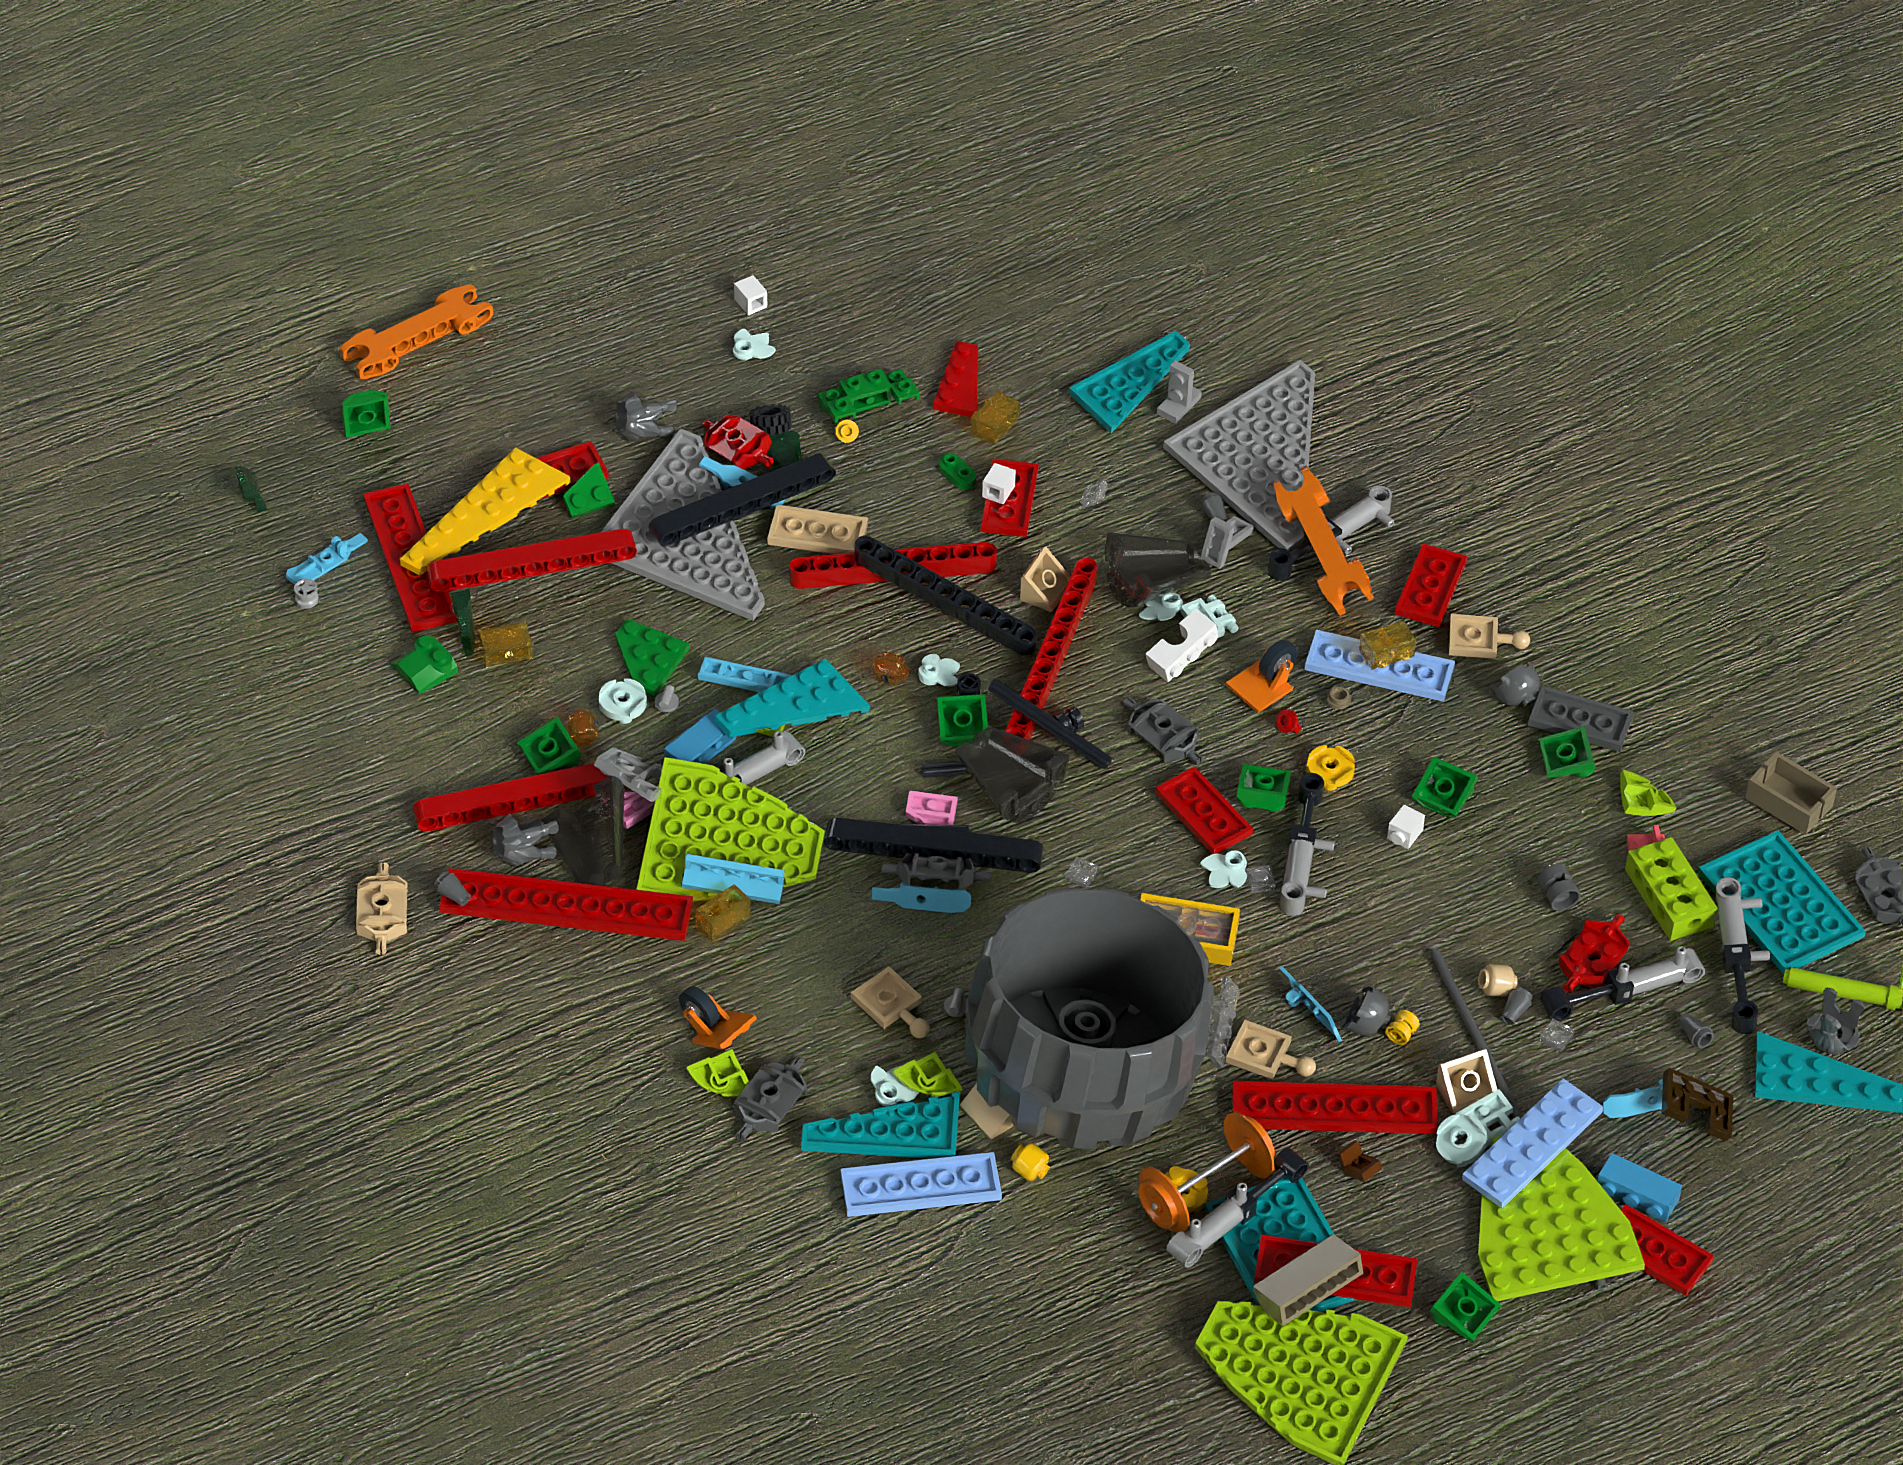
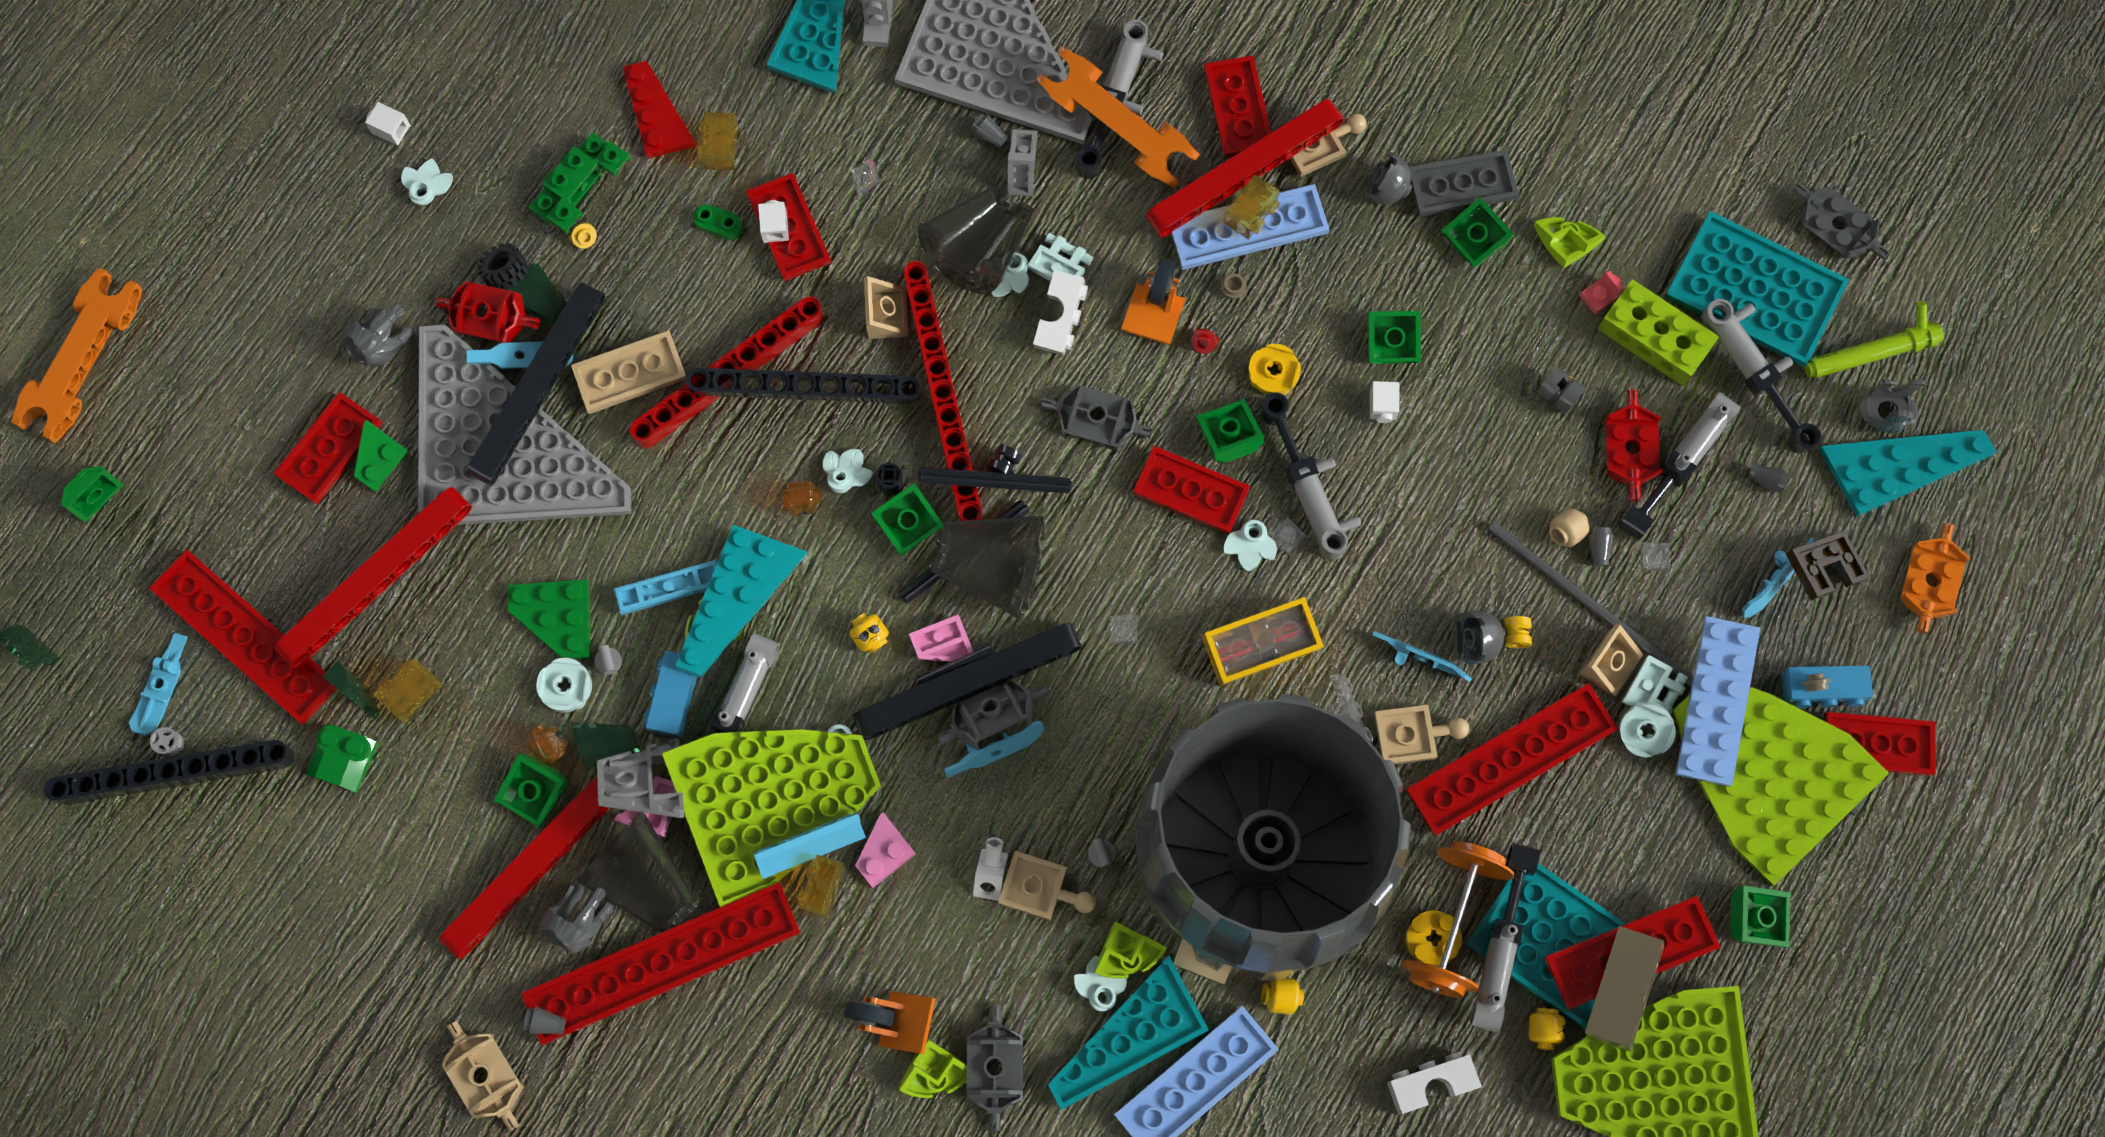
camera: 30 degrees left, 25 degrees up
(295, 611) = (157, 770): none -> black beam
(494, 501) = (291, 515): yellow wing -> none
(623, 742) = (602, 741): none -> clear green slope
(786, 922) = (883, 852): none -> bright pink wing
(861, 967) = (990, 869): none -> white bracket
(879, 777) = (868, 633): none -> yellow head
(1090, 1272) = (1409, 1089): none -> white arch
(1230, 1288) = (1546, 1028): none -> yellow head
(1356, 1163) = (1572, 811): reddish brown bracket -> none
(1420, 619) = (1240, 169): none -> red beam
(1624, 1167) = (1816, 682): none -> dark tan plate
(1791, 793) = (1699, 164): dark tan piece -> none
(1796, 1149) = (1947, 564): none -> orange plate

